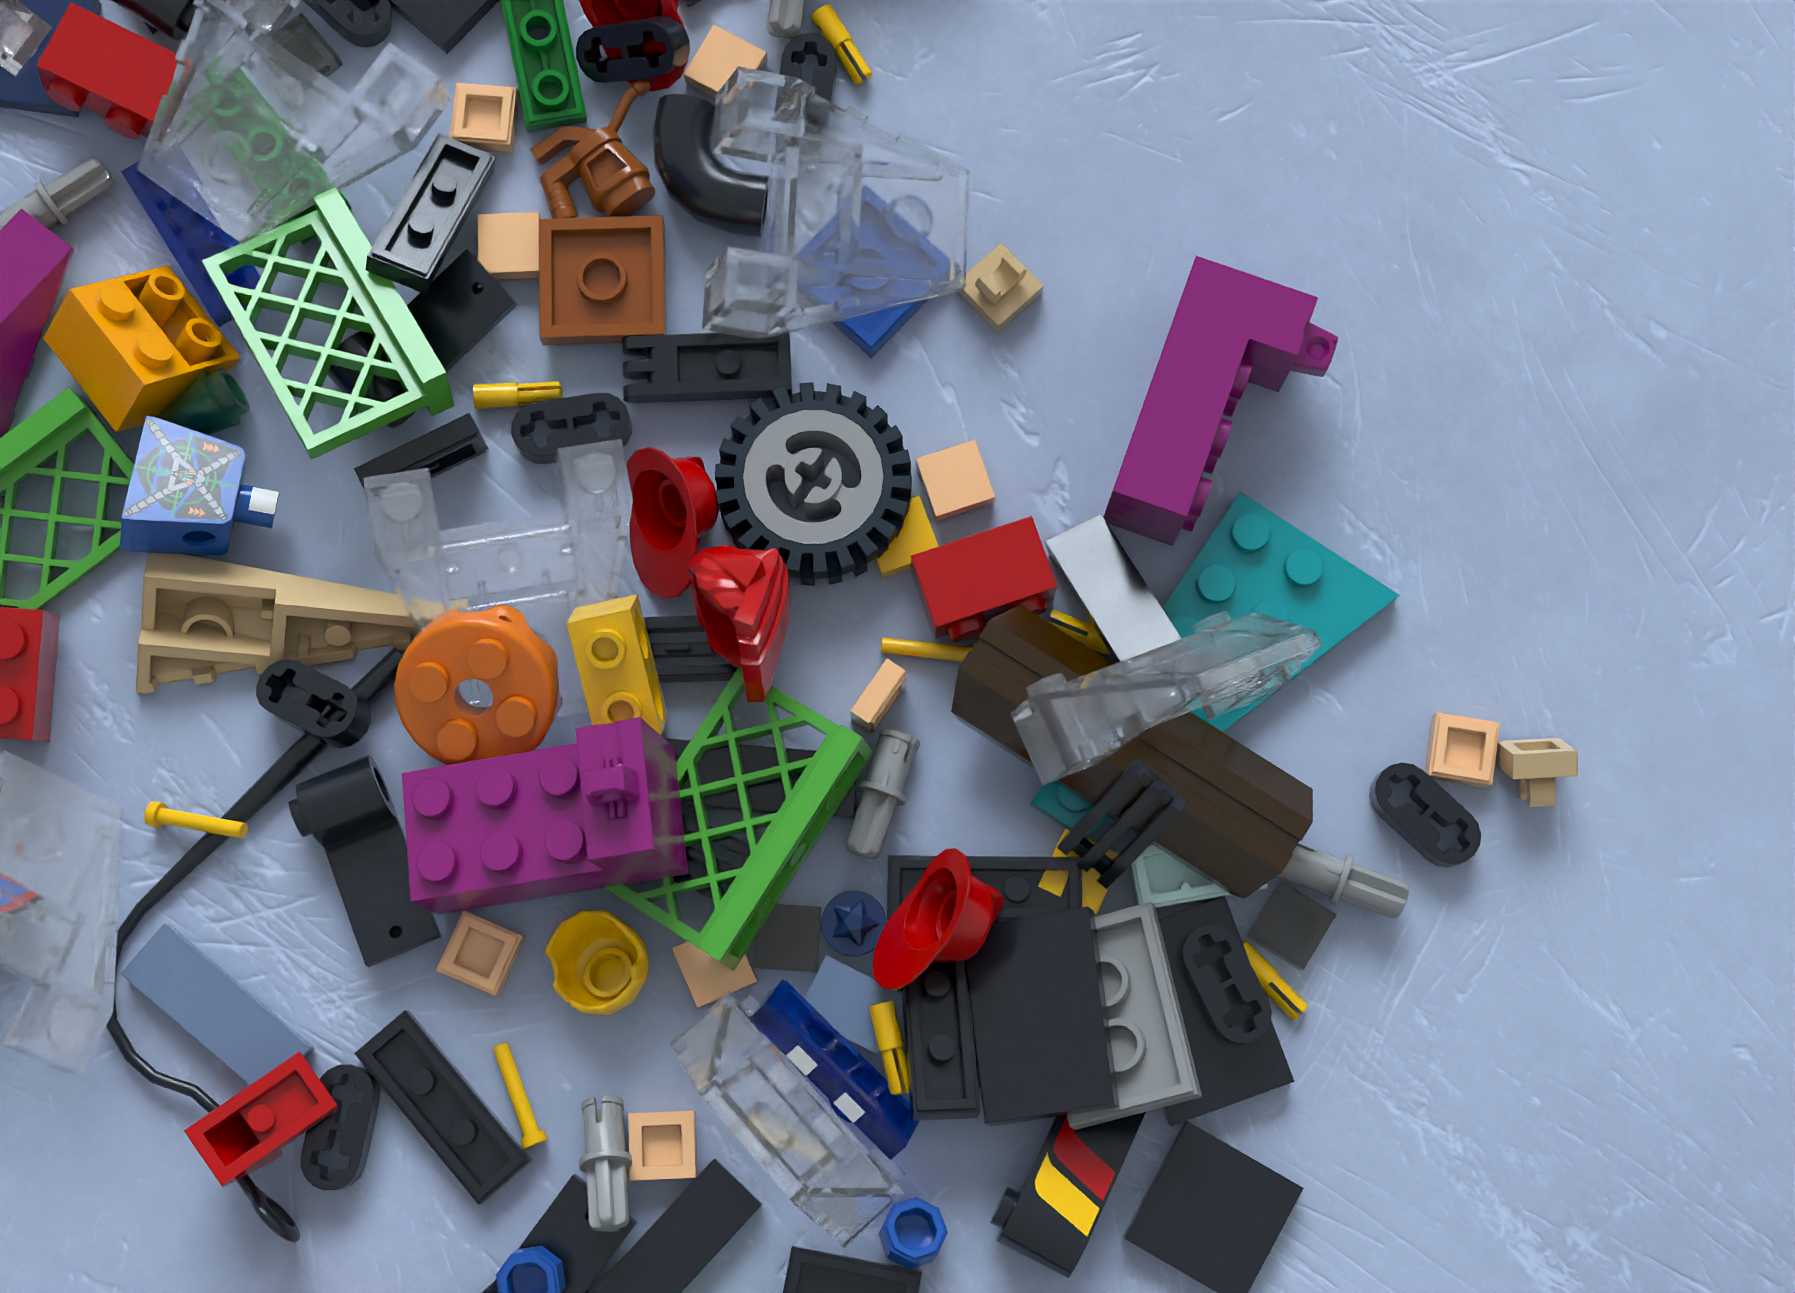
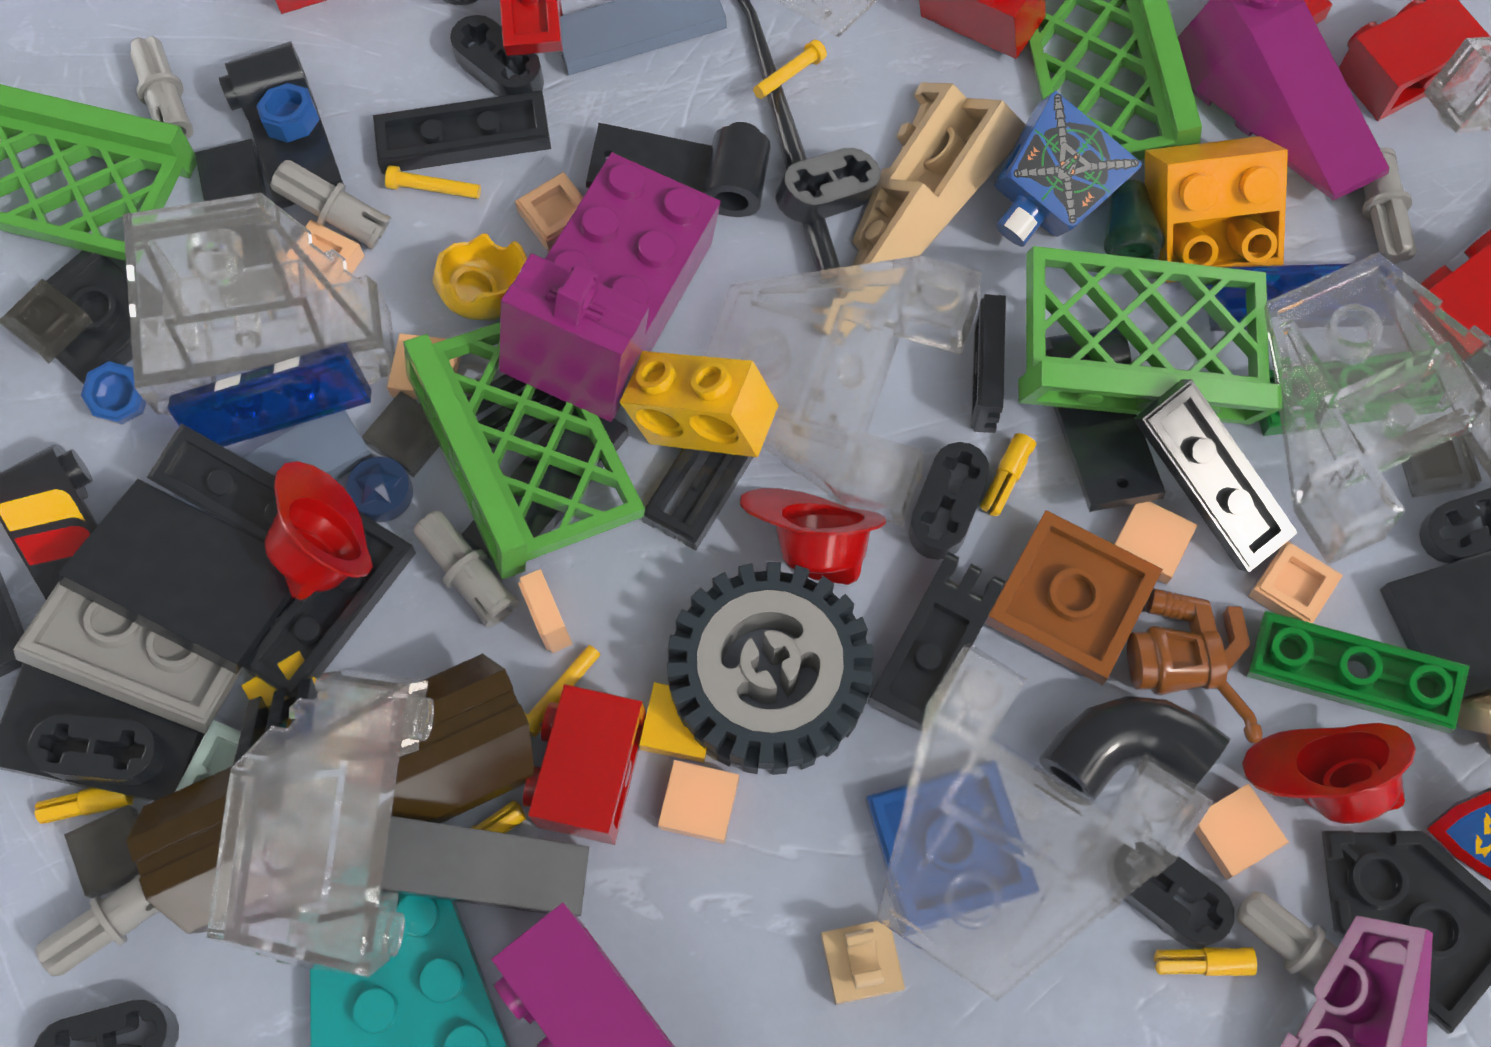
camera: 125 degrees right, 10 degrees down
(486, 647) = (782, 282): orange plate -> none
(630, 36) = (1295, 743): black beam -> none
(744, 609) = (680, 527): red hair -> none
(890, 1045) = (262, 453): yellow pin -> none

